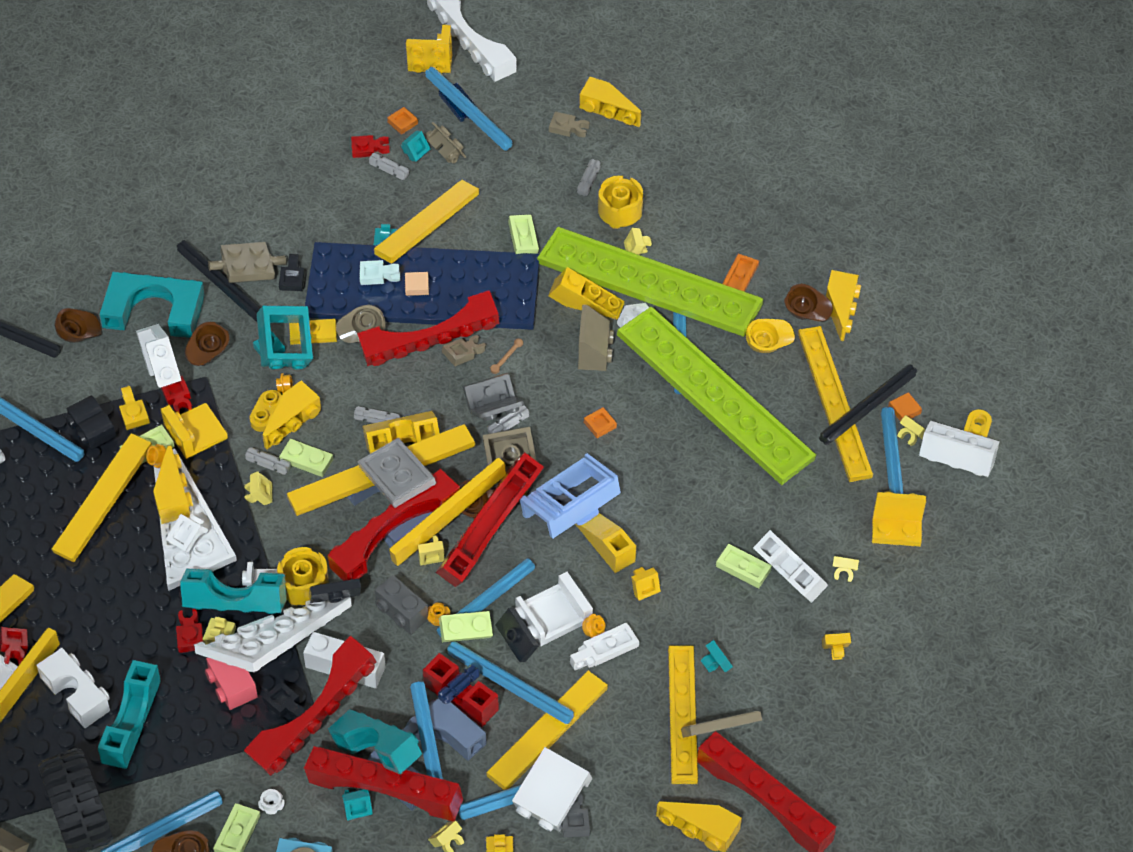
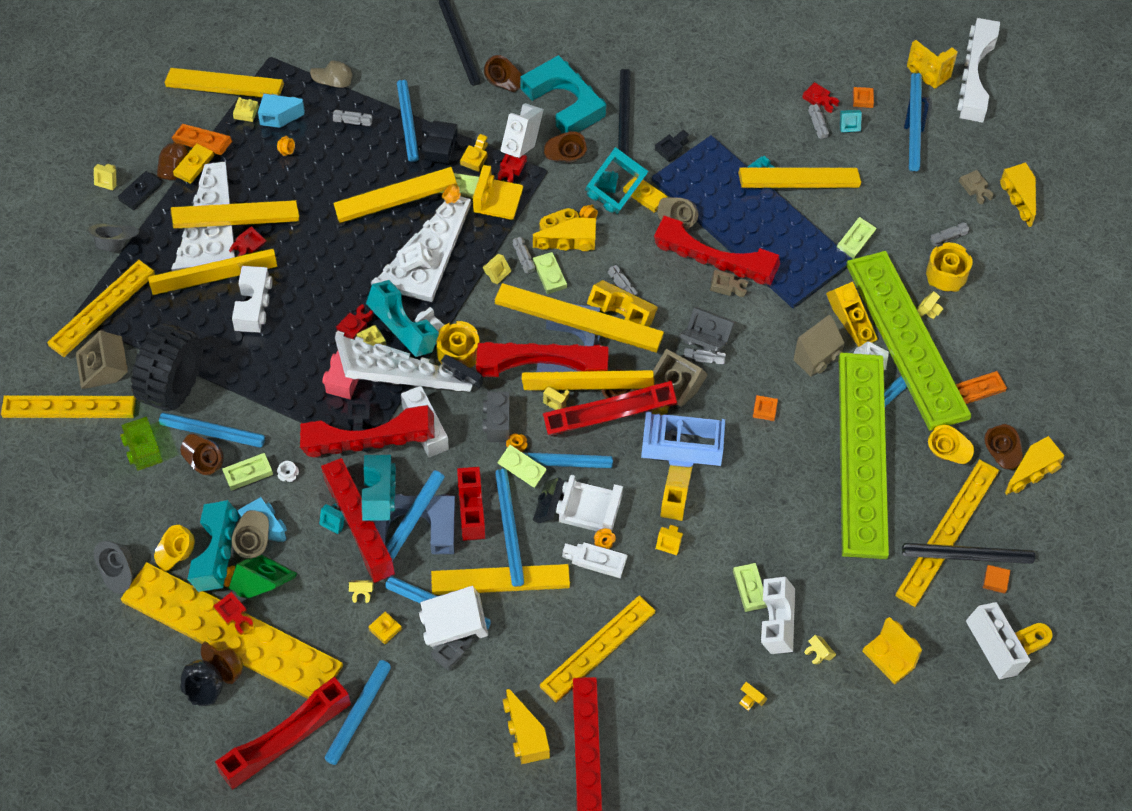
camera: 45 degrees right, 5 degrees up
(121, 737) = (283, 333): teal arch -> none
(169, 489) = (434, 221): yellow slope -> none
(247, 262) = (651, 114): dark tan plate -> none
(375, 271) = (724, 184): light aqua plate -> none
(396, 472) = (579, 326): light grey tile -> none
(416, 283) = (743, 214): light nougat tile -> none
(451, 148) = (875, 140): dark tan hinge -> none
(458, 684) = (470, 497): dark blue axle -> none
(496, 367) = (736, 313): medium nougat hinge -> none
(715, 659) = (660, 631): teal tile -> none
(721, 724) = (610, 677): dark tan tile -> none
(891, 450) = (947, 603): dark azure axle -> none
(911, 428) = (982, 596): light yellow tile -> none

